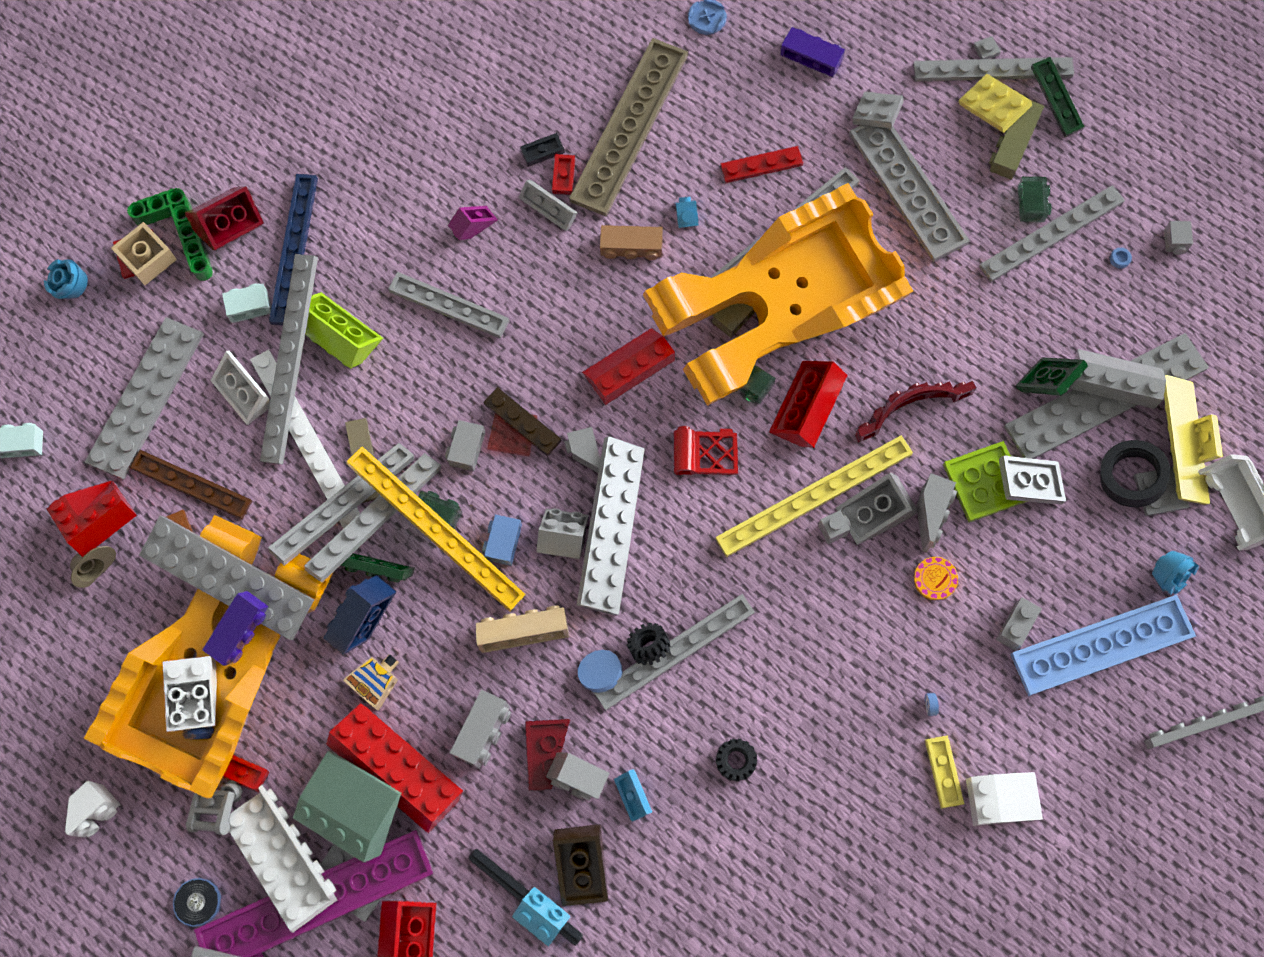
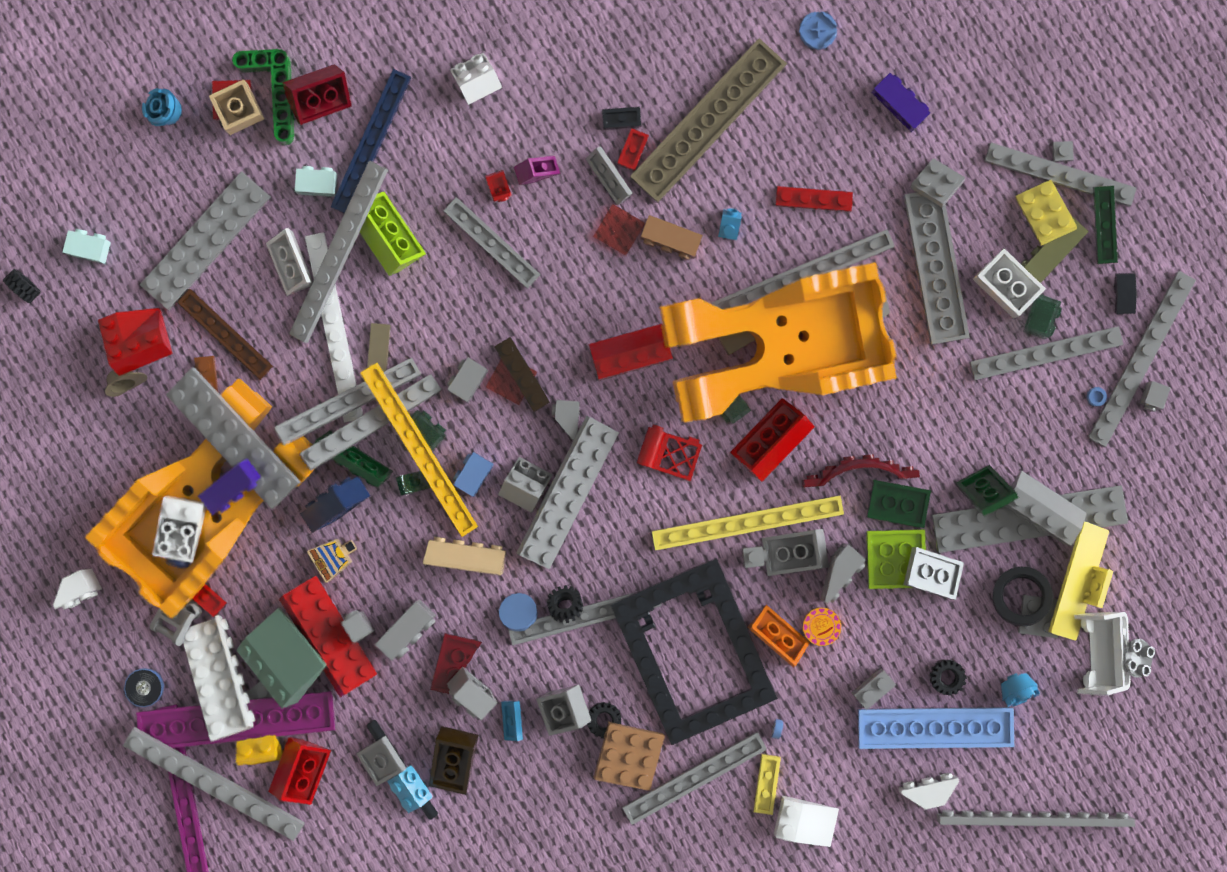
camera: 15 degrees right, 15 degrees up
(351, 928) = (258, 750): none -> yellow bracket
(383, 157) = (476, 78): none -> white slope
(424, 739) = (357, 625): none -> light grey brick
(437, 248) = (498, 186): none -> red bracket
(440, 569) = (412, 483): none -> clear green slope
(497, 892) = (381, 761): none -> light grey plate
(575, 253) = (619, 229): none -> clear red tile
(687, 760) = (564, 710): none -> light grey brick
(731, 618) = (640, 604): none -> black plate
(778, 790) = (629, 756): none -> medium nougat plate
(860, 792) = (694, 778): none -> light grey plate
(893, 603) = (779, 635): none -> orange slope
(965, 425) = (898, 503): none -> dark green plate
(987, 177) = (1009, 284): none -> white slope
(1103, 579) = (958, 682): none -> black tyre
(1105, 152) = (1125, 293): none -> black slope
(1126, 717) = (930, 792): none -> white slope
(1148, 211) = (1141, 359): none -> light grey plate

